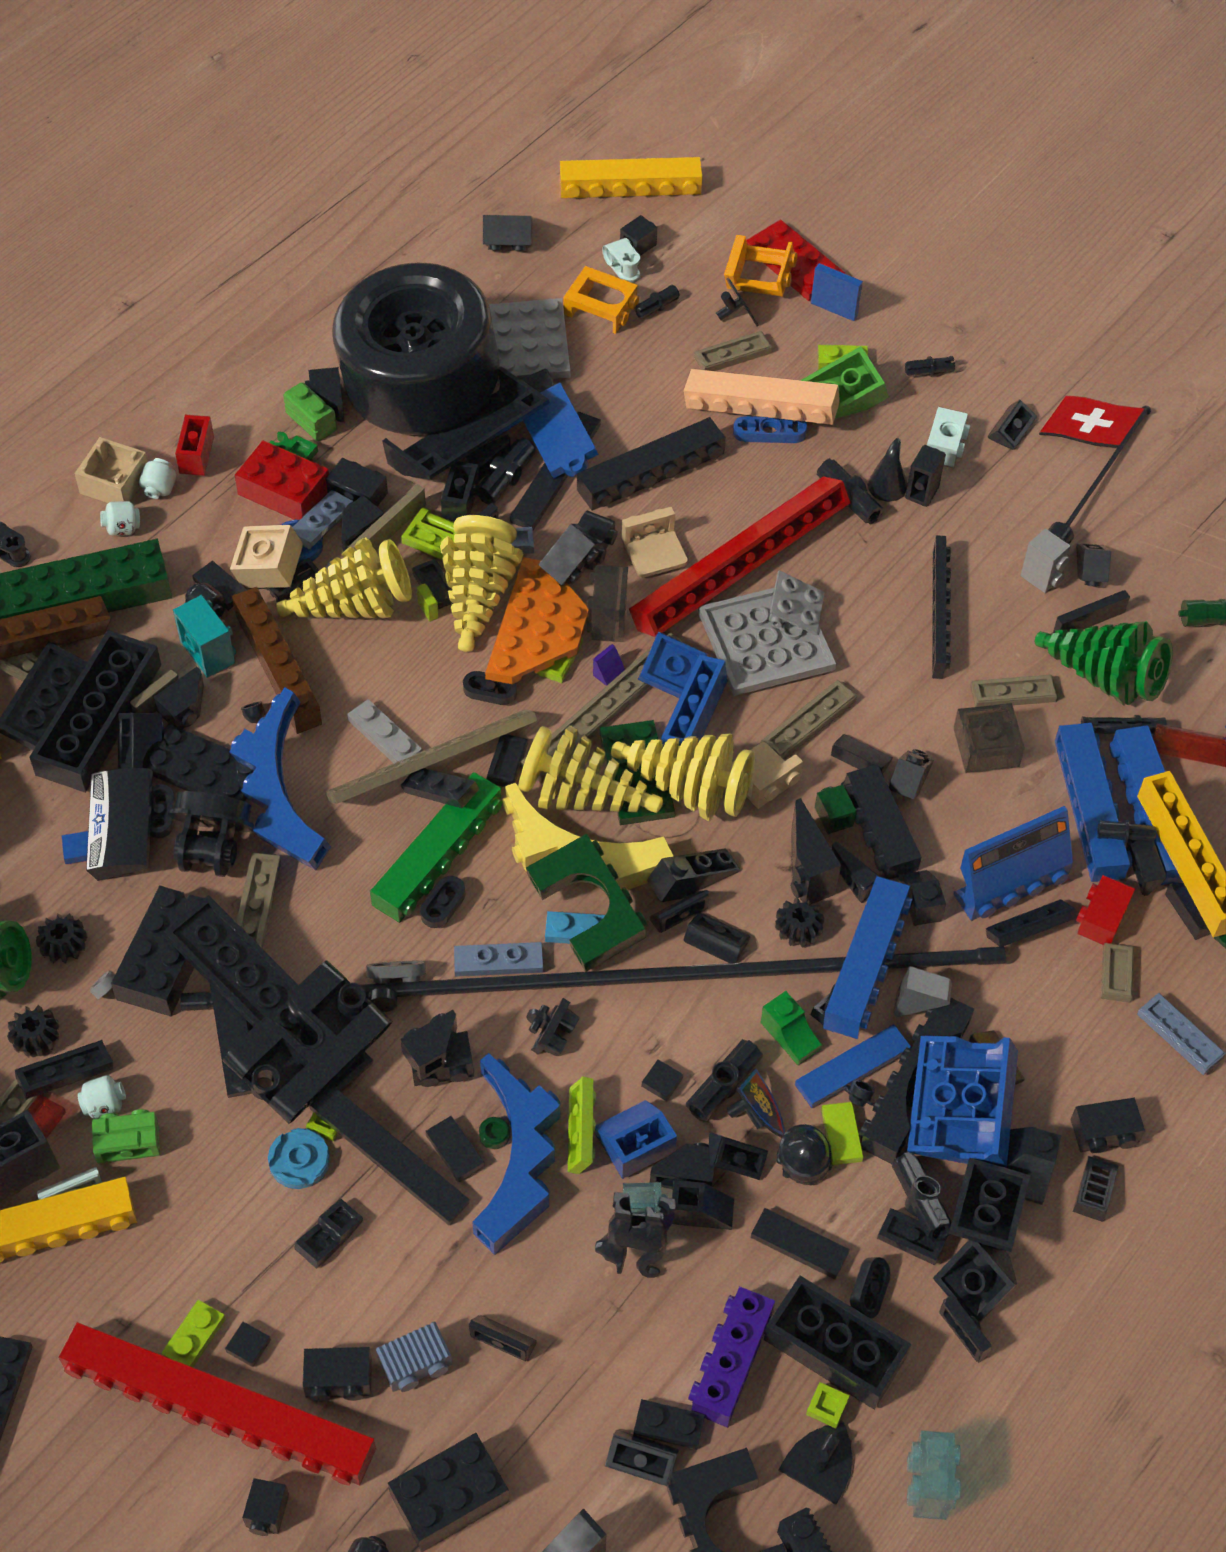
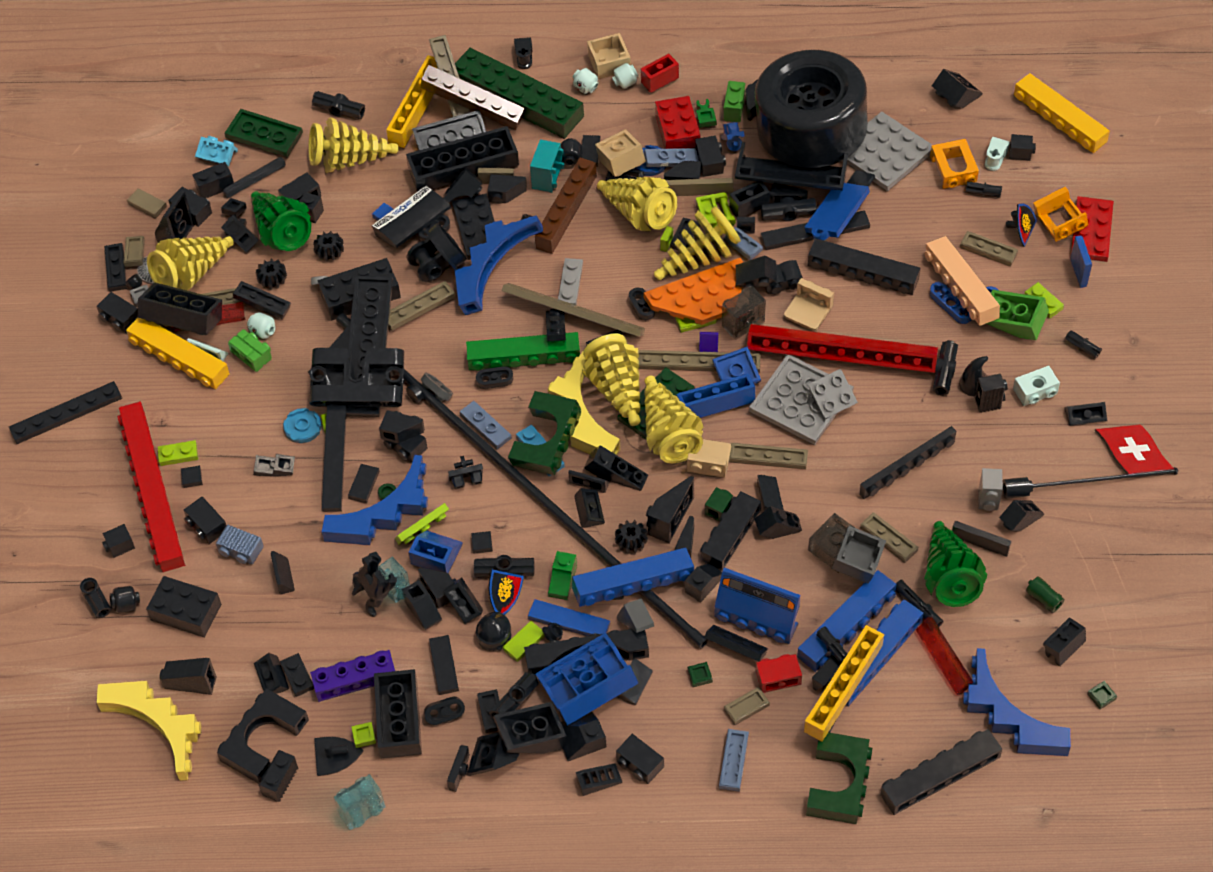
camera: 55 degrees right, 0 degrees up
(355, 444) = (732, 135): none -> blue hips
(1038, 988) = (700, 674): none -> dark green tile
(1039, 723) = (858, 554): none -> dark grey container

